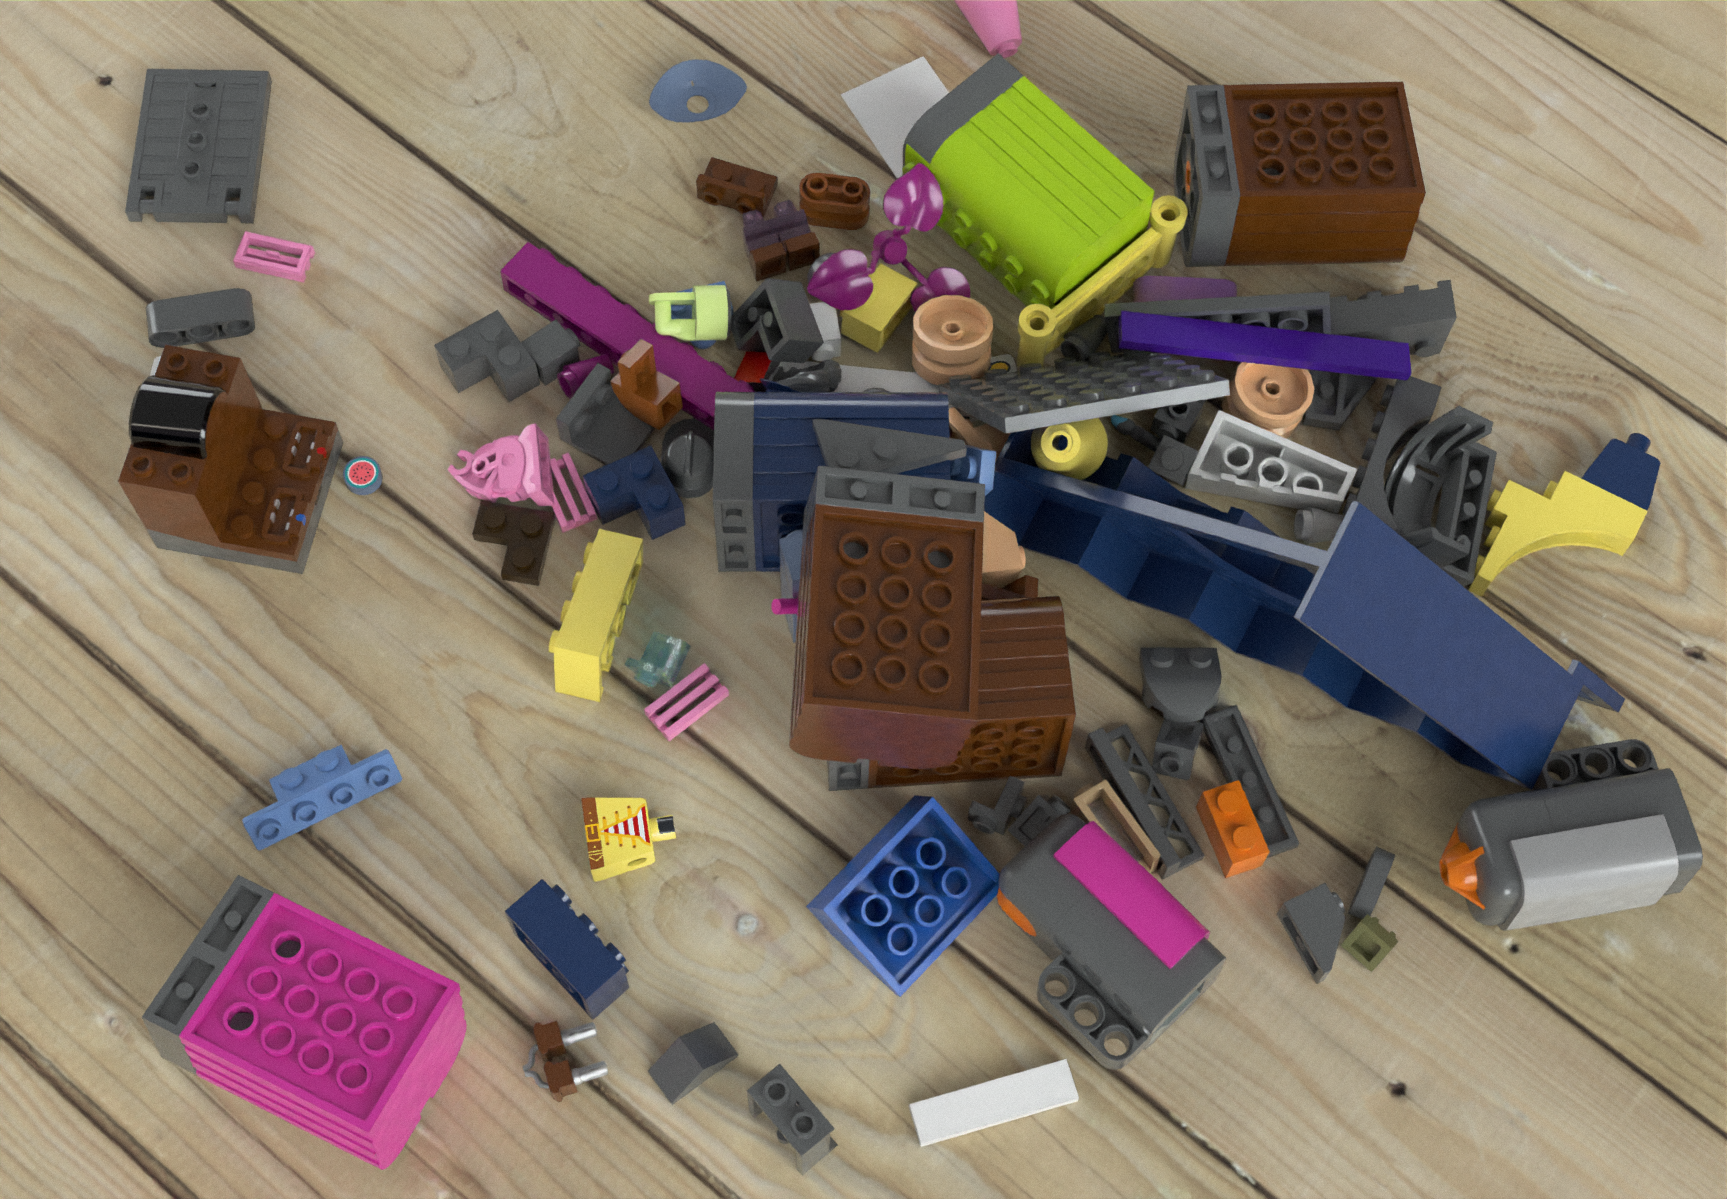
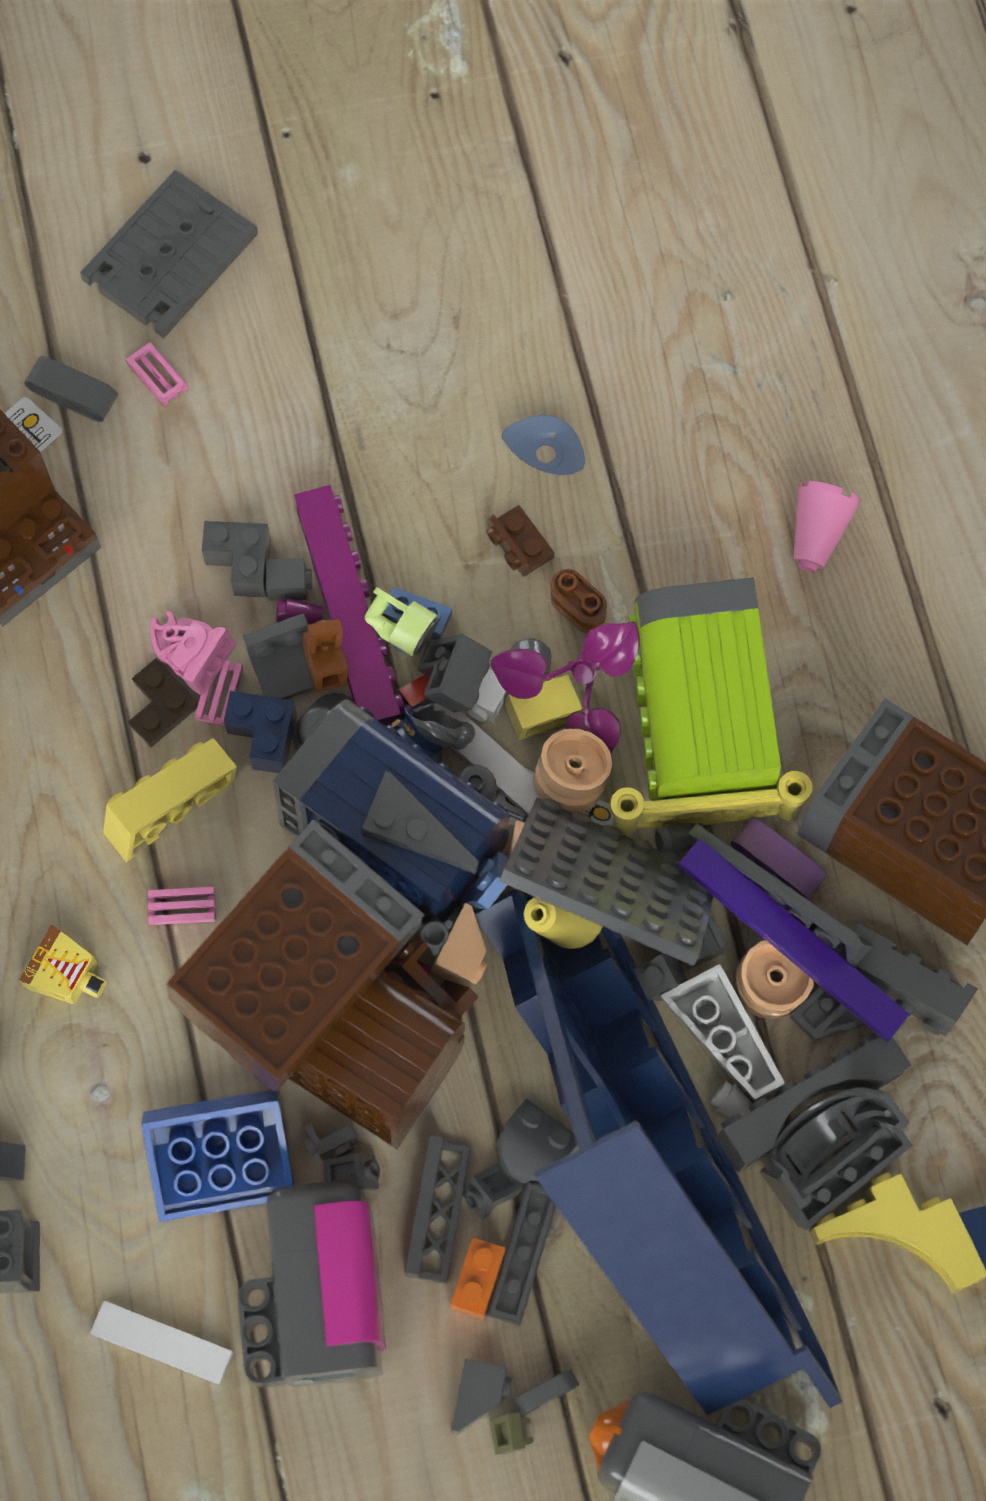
camera: 40 degrees right, 5 degrees up
(362, 475) = (93, 582): tile -> none
(659, 661) = (183, 864): clear light blue bracket -> none
(779, 241) = (503, 595): hips -> none
(892, 106) = (695, 553): white sticker -> none
(1104, 807) = (394, 1217): tan window -> none

